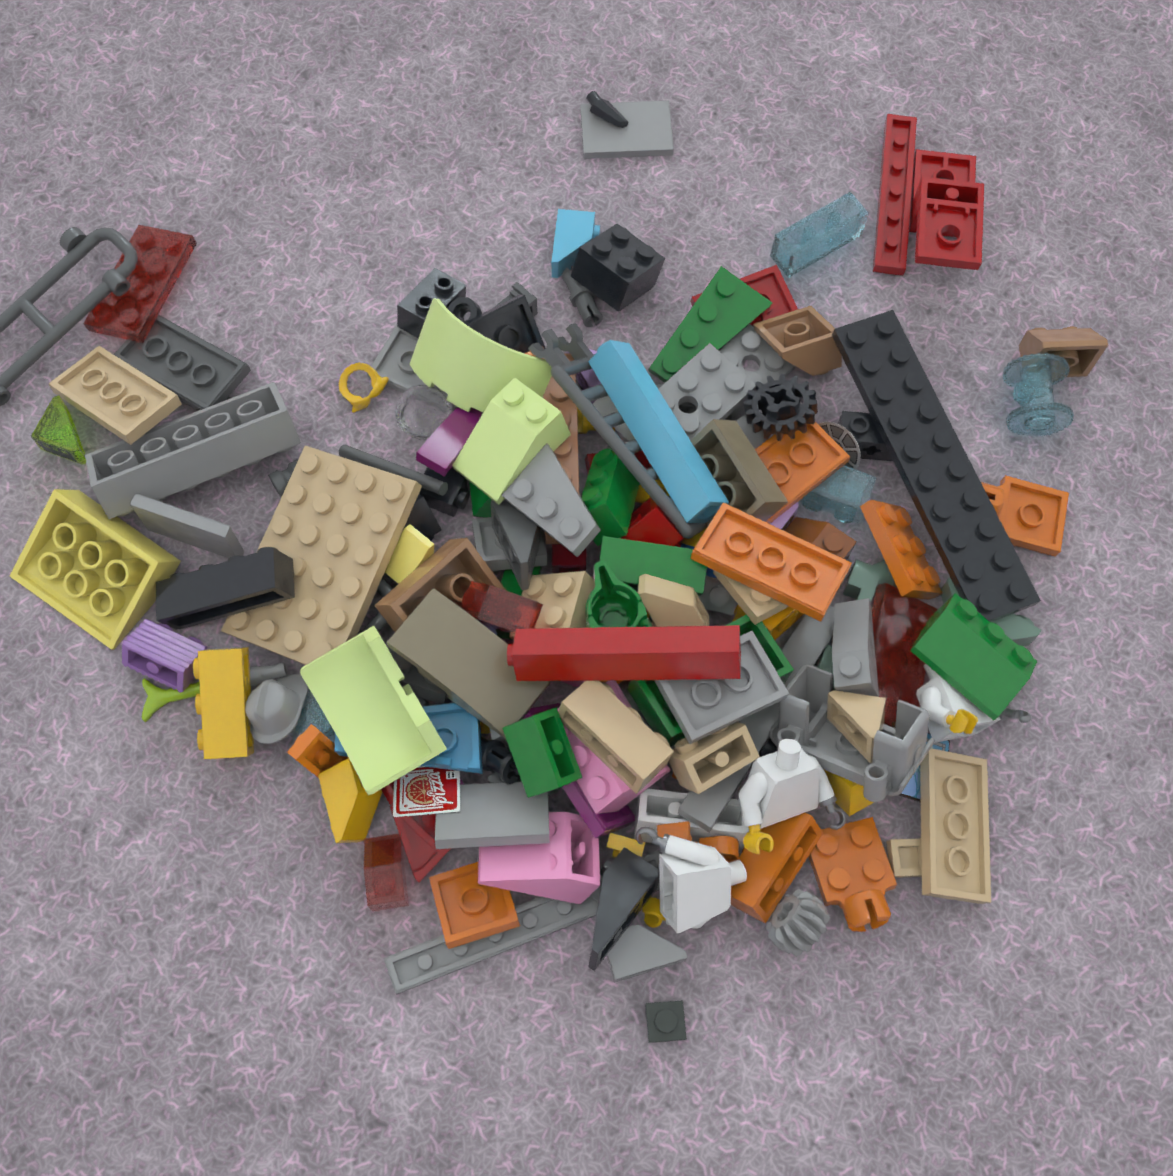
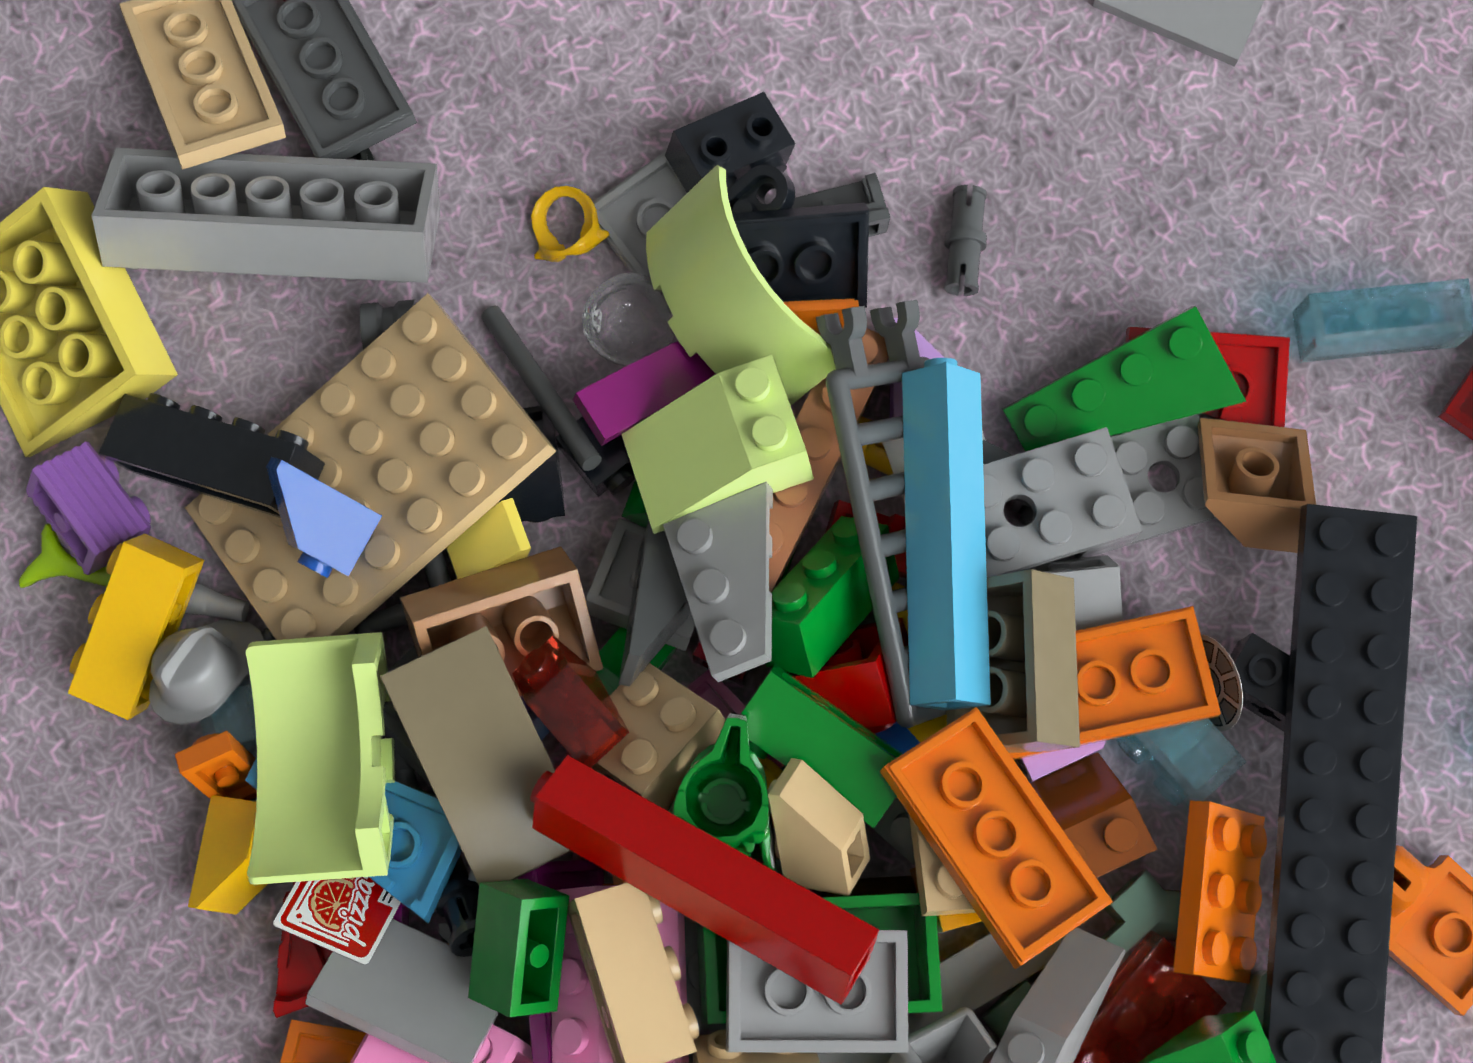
camera: 25 degrees right, 10 degrees up
(58, 433) = (102, 87): clear neon green slope -> none
(186, 527) = (206, 333): light grey tile -> none
(306, 578) = (320, 520): none -> slope
(385, 873) = (235, 980): clear red slope -> none
(571, 232) = (999, 141): medium azure slope -> none
(617, 267) = (1040, 224): black brick -> none
(781, 407) = (1152, 609): black gear -> none

